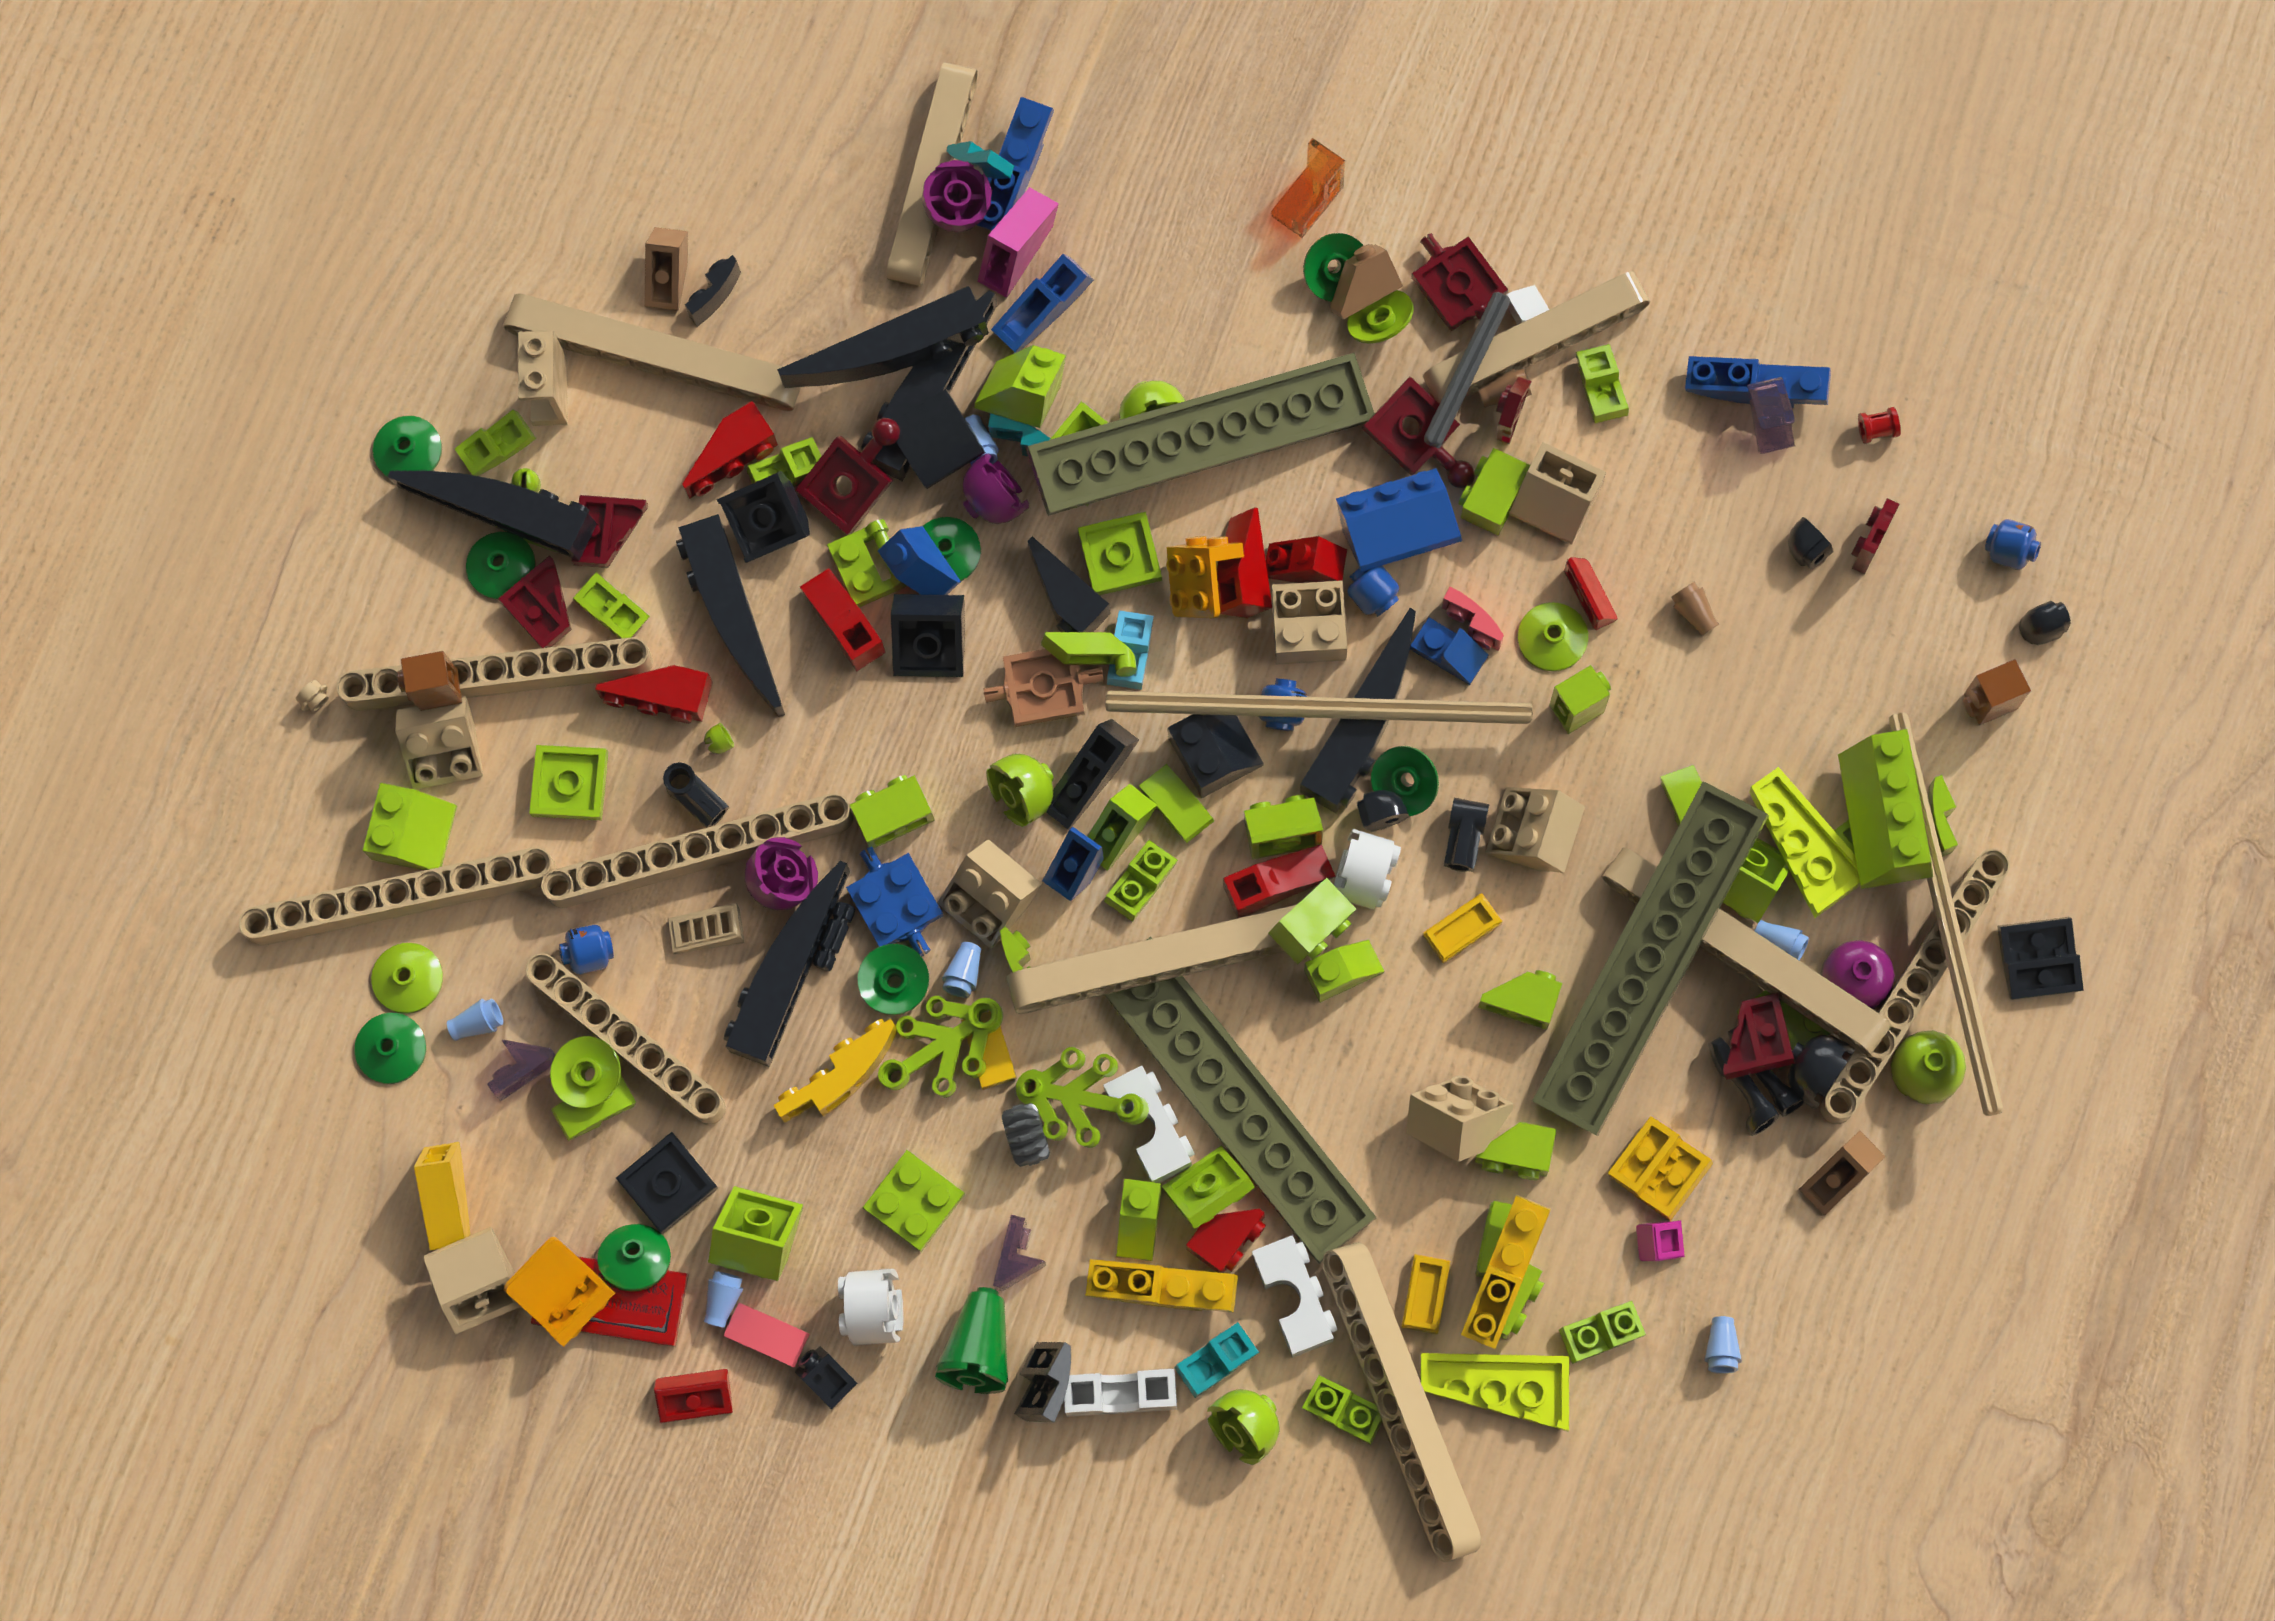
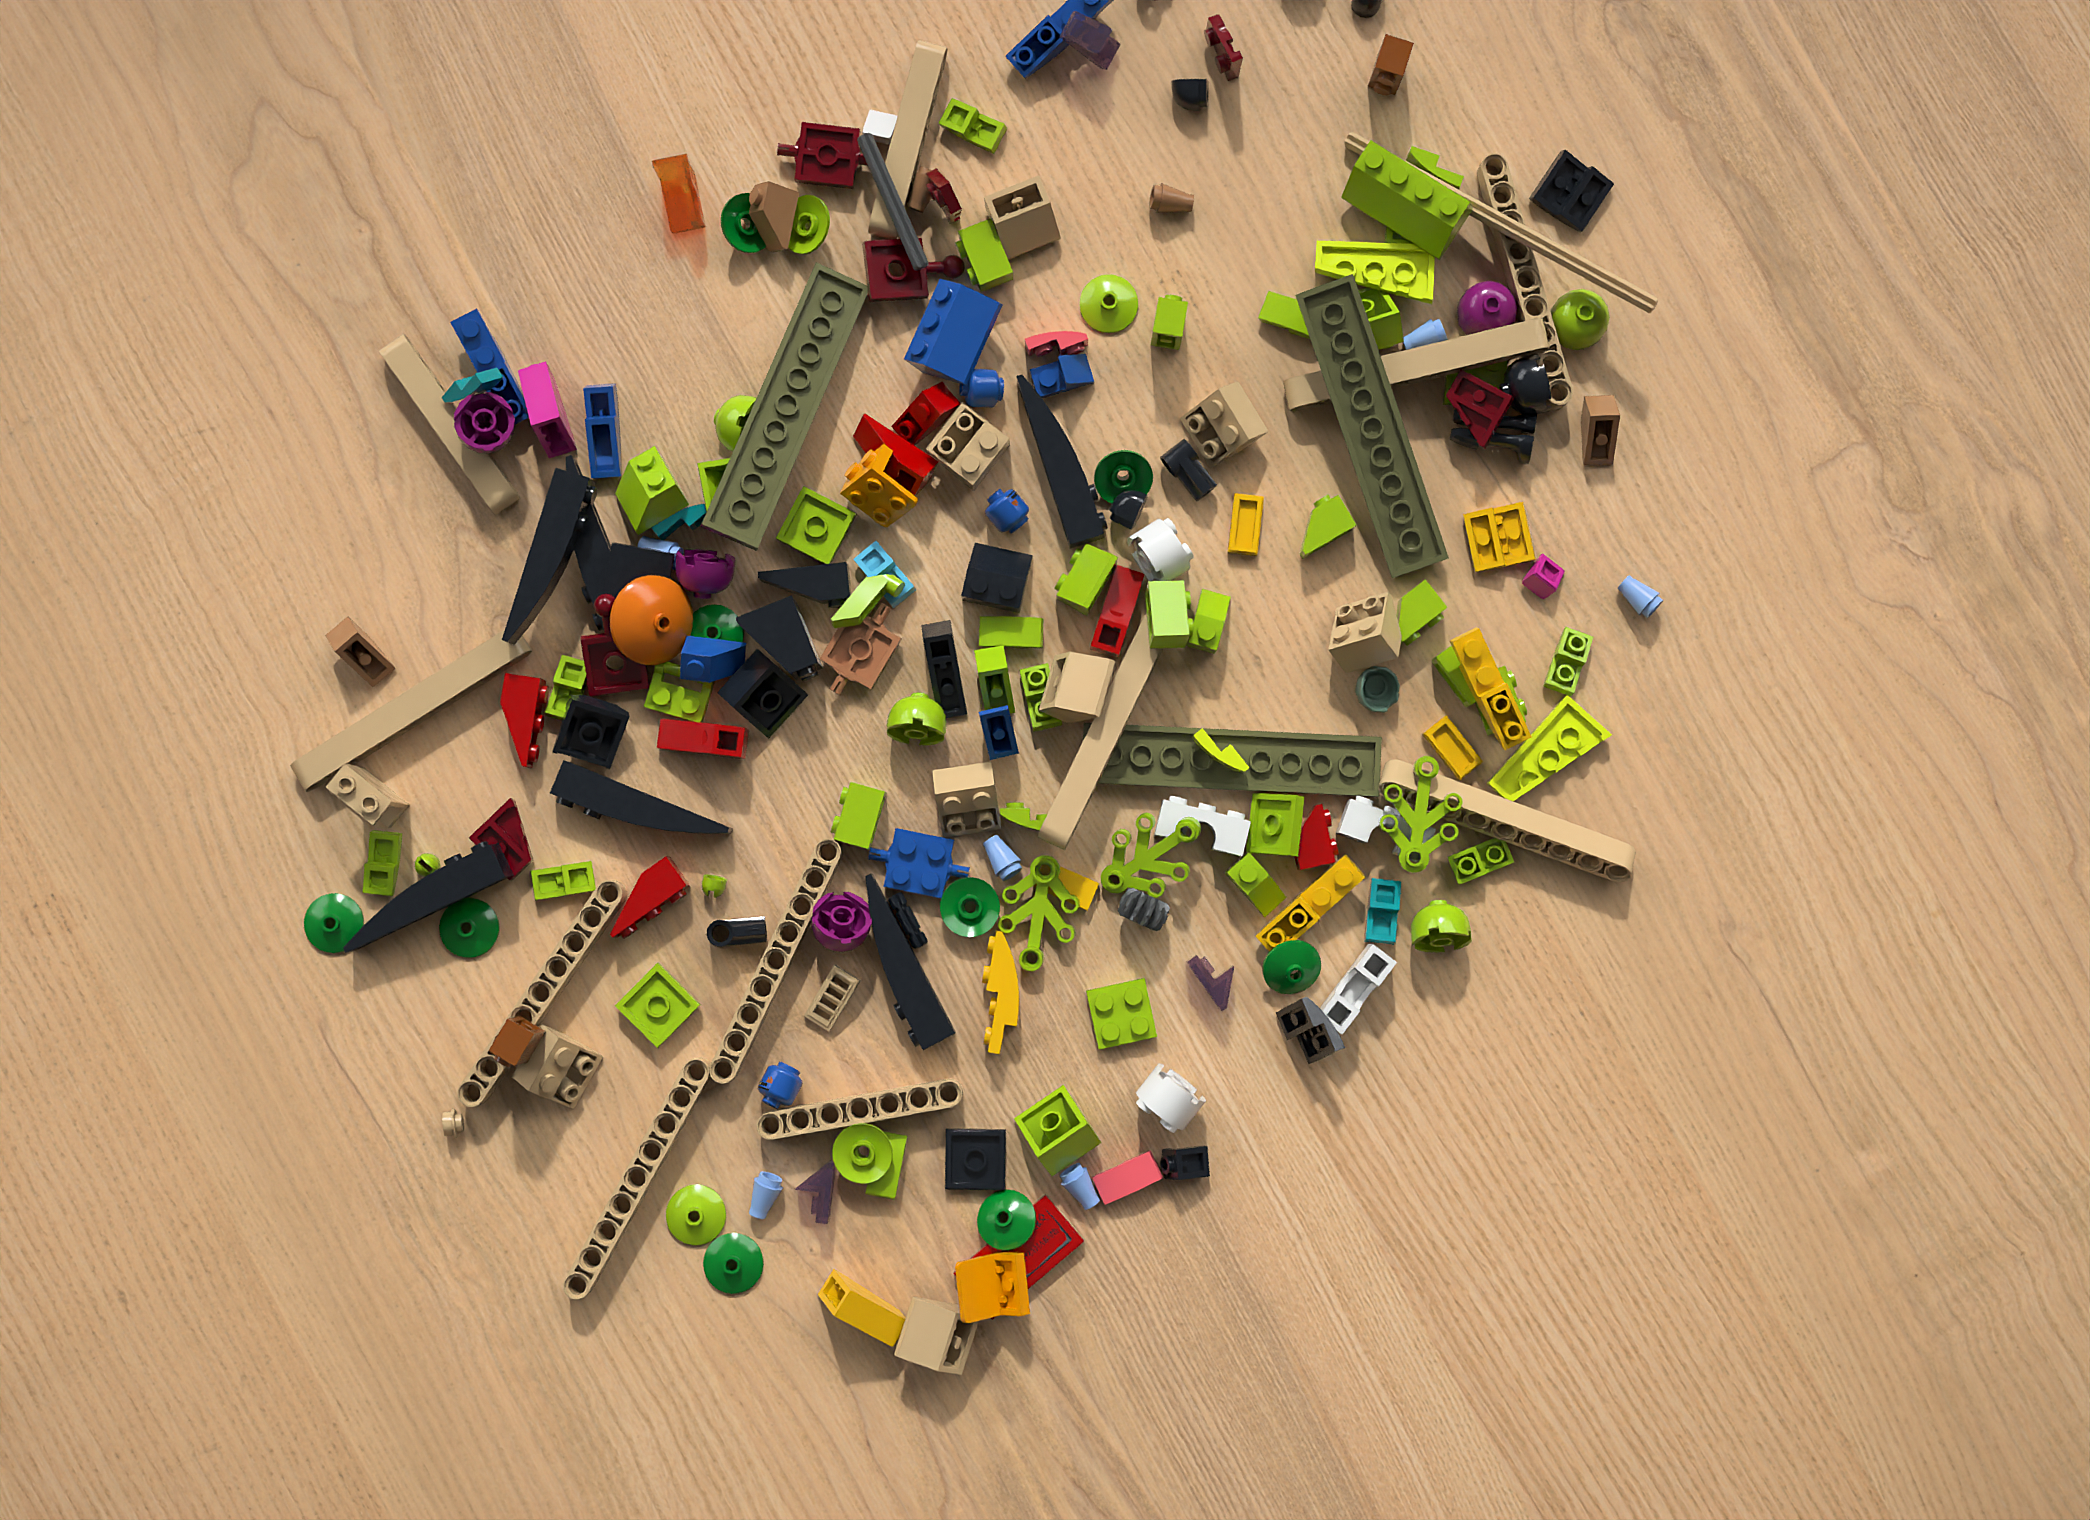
camera: 55 degrees left, 10 degrees up
(409, 828) = (599, 1133): lime slope -> none
(539, 604) = (520, 925): dark red wing -> none
(693, 1395) = (1125, 1254): red slope -> none
(721, 281) = (401, 623): black slope -> none
(906, 461) = (637, 618): none -> orange dish
(977, 1346) = (1249, 1051): green cone -> none
(995, 607) = (784, 636): none -> black slope
(1099, 1307) = (1289, 957): none -> green dish
(1175, 898) = (1076, 687): none -> tan slope
(1231, 1086) = (1227, 757): none -> neon yellow slope
(1318, 707) = (1032, 490): tan axle -> none
(1327, 1312) = (1419, 819): none -> lime plant
(1417, 1175) = (1377, 689): none -> sand green hair
(1589, 592) = (1102, 256): red slope -> none

